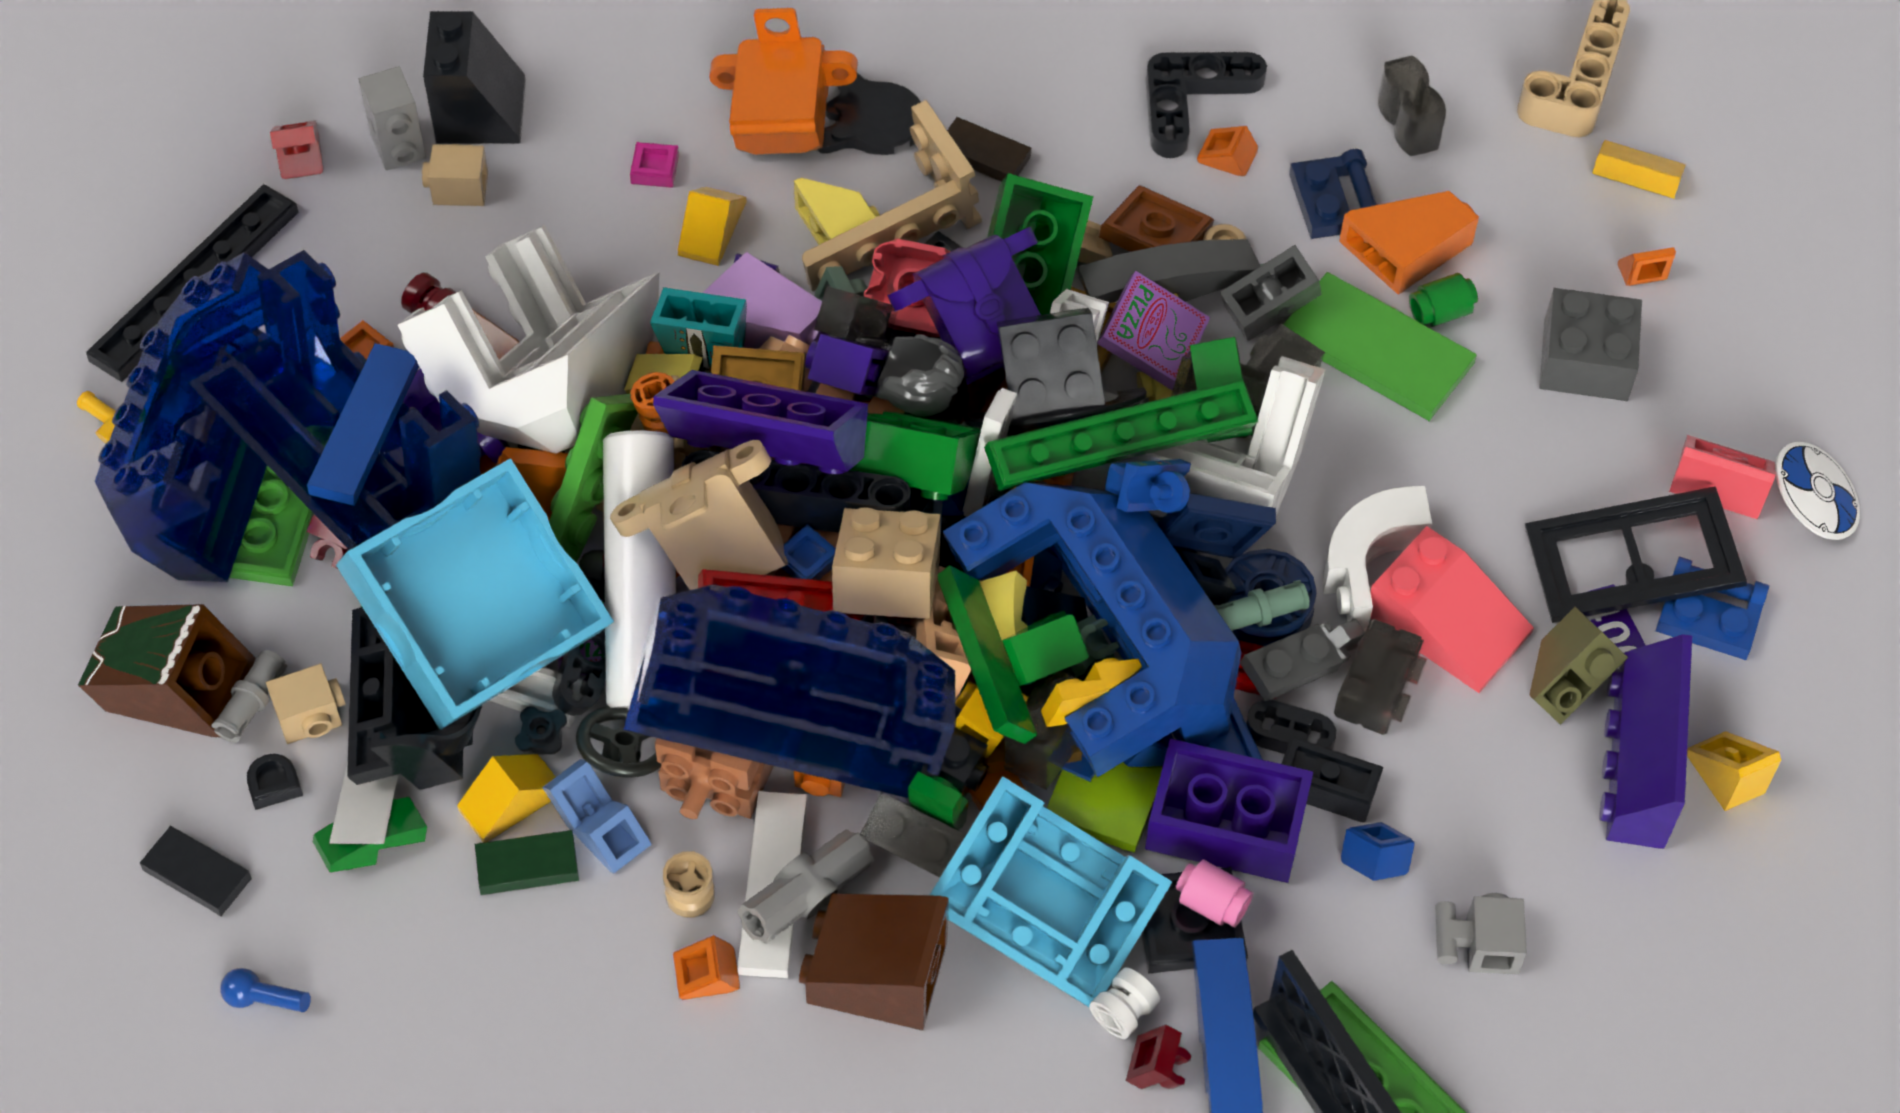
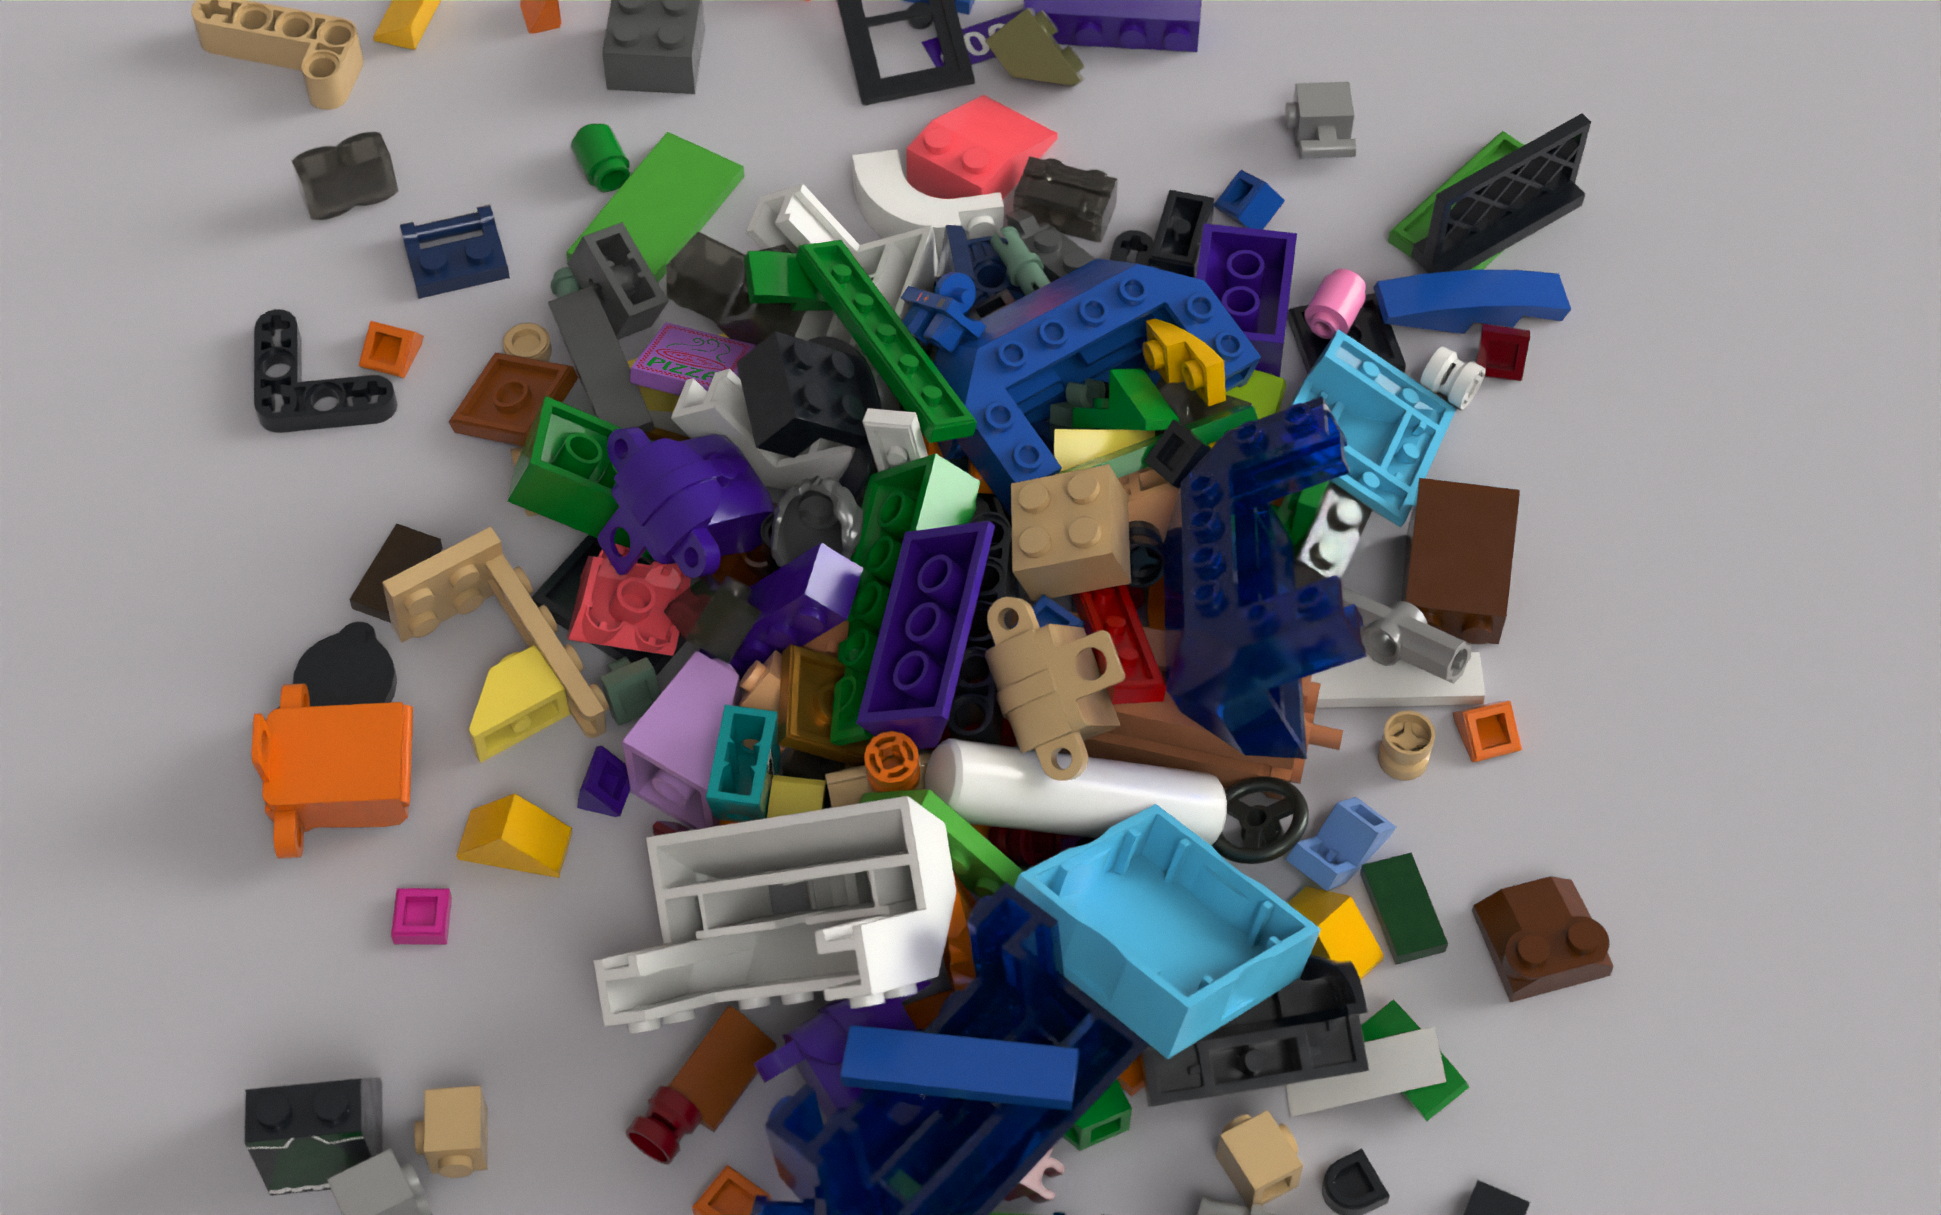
camera: 95 degrees left, 0 degrees up
(243, 987) = (1608, 1166): blue bar -> none
(472, 974) = (1542, 937): none -> reddish brown slope
(956, 647) = (1176, 453): none -> black tile
(1409, 236) = (522, 182): orange slope -> none

